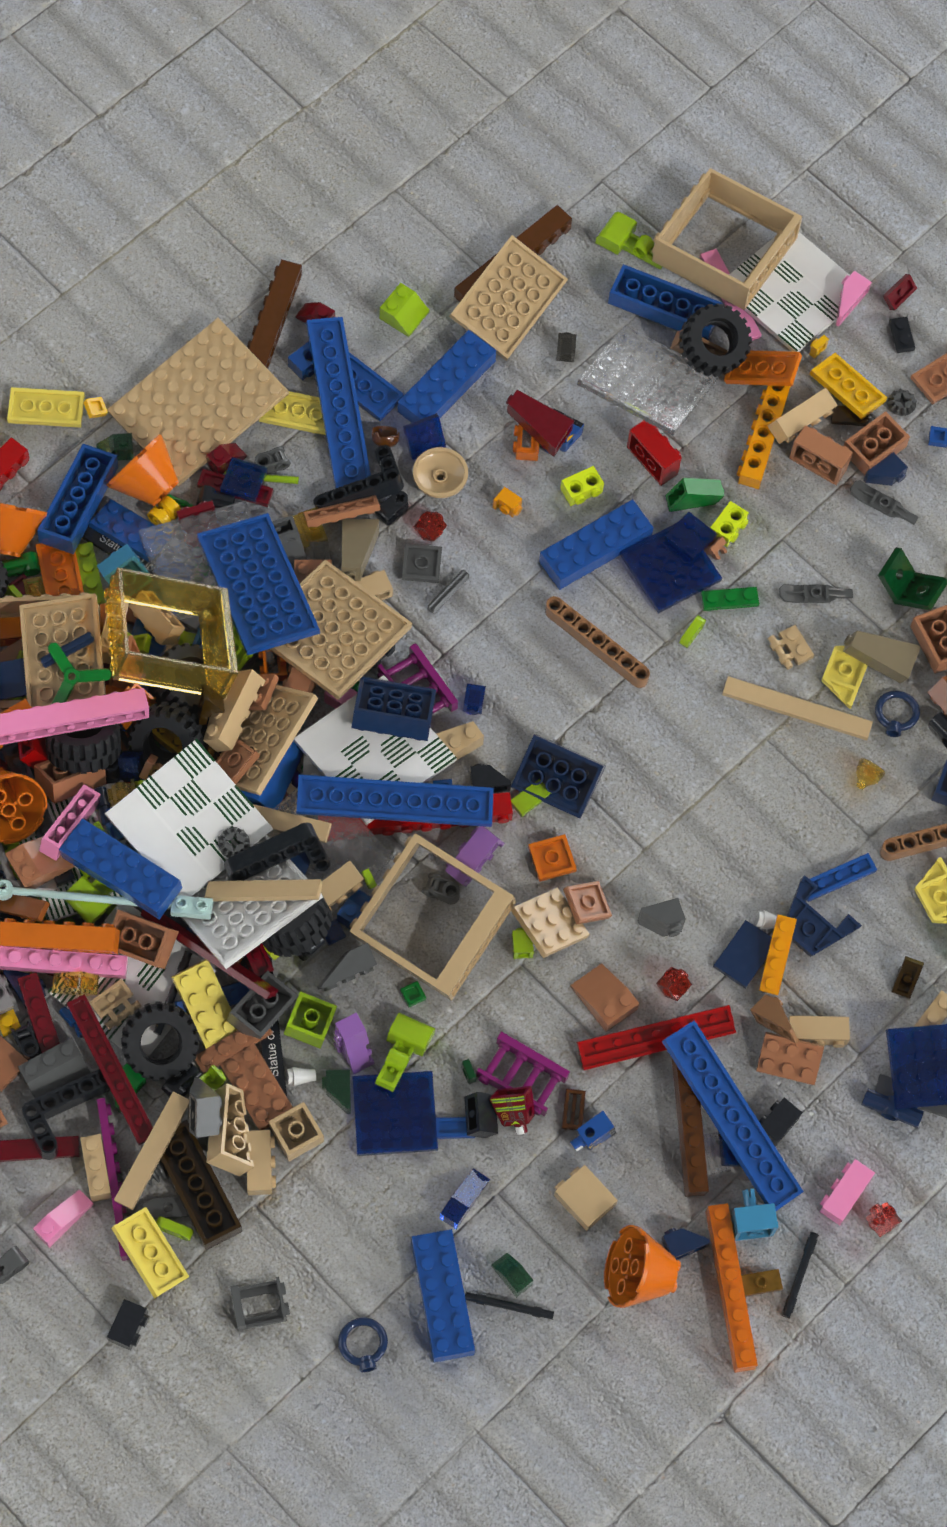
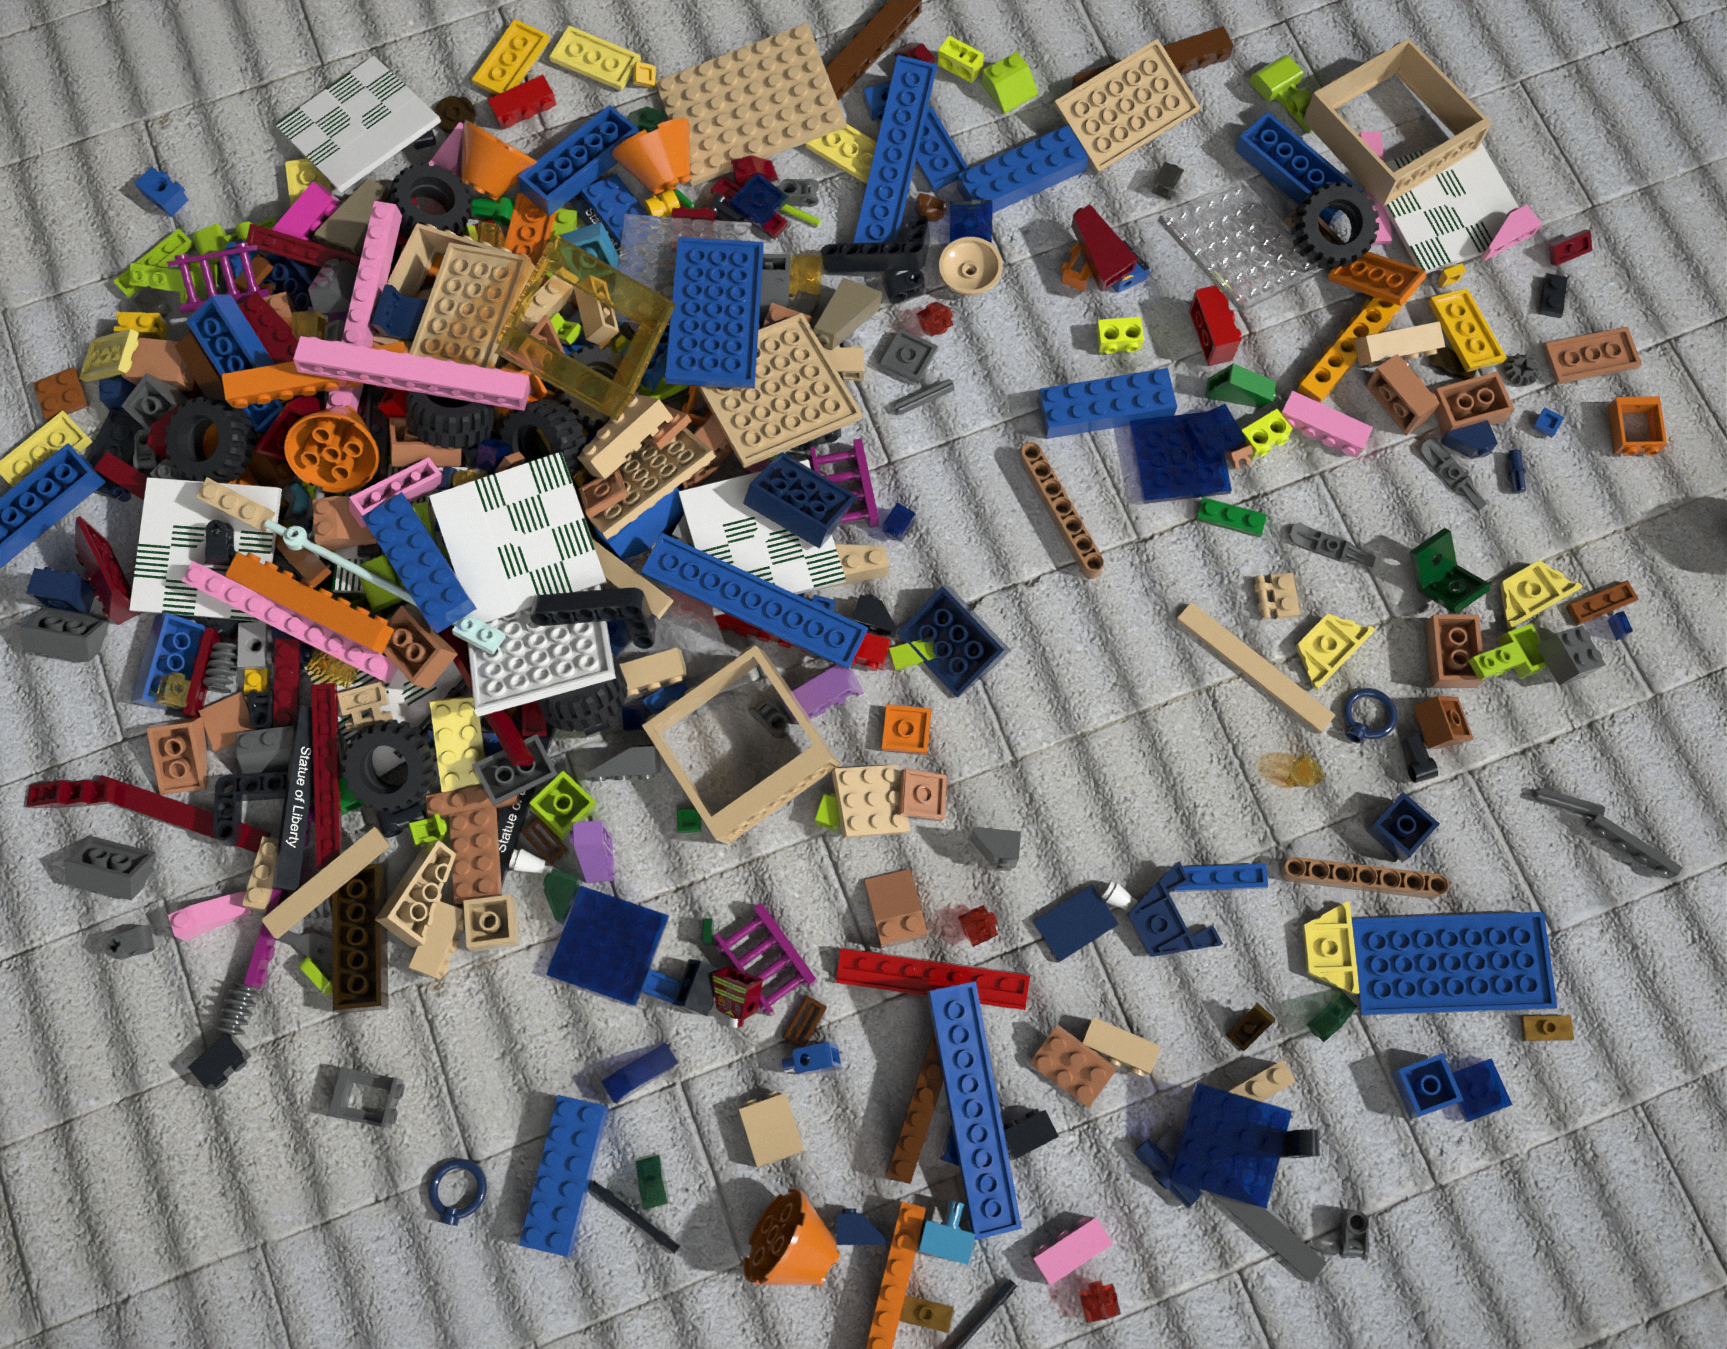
camera: 30 degrees right, 5 degrees up
(70, 648) = (472, 306): dark blue axle -> none
(80, 675) = (461, 326): green piece -> none
(97, 1098) = (295, 804): none -> black tile
(122, 1279) = (237, 1009): none -> dark grey piece
(150, 1252) = (276, 992): light yellow plate -> none
(204, 1110) = (394, 859): slope -> none
(209, 703) = (596, 419): dark brown slope -> none
(227, 835) = (551, 569): dark grey gear -> none
(264, 890) = (559, 645): tan tile -> none
(320, 1062) = (557, 855): none -> reddish brown tile
(342, 511) = (845, 269): nougat plate -> none
(355, 304) = (960, 59): none -> neon yellow brick
(368, 878) = (691, 675): lime tile -> none
(408, 1038) = (660, 867): lime plate -> none
(508, 502) = (1030, 324): light orange brick -> none
(692, 631) = (1172, 537): lime beam -> none
(770, 1014) = (1074, 1009): medium nougat slope -> none
(772, 499) = (1326, 424): none -> bright pink brick
(777, 954) = (1110, 940): light orange plate -> none
(883, 654) = (1379, 643): dark tan slope -> none
(930, 483) = (1516, 471): none -> dark blue axle

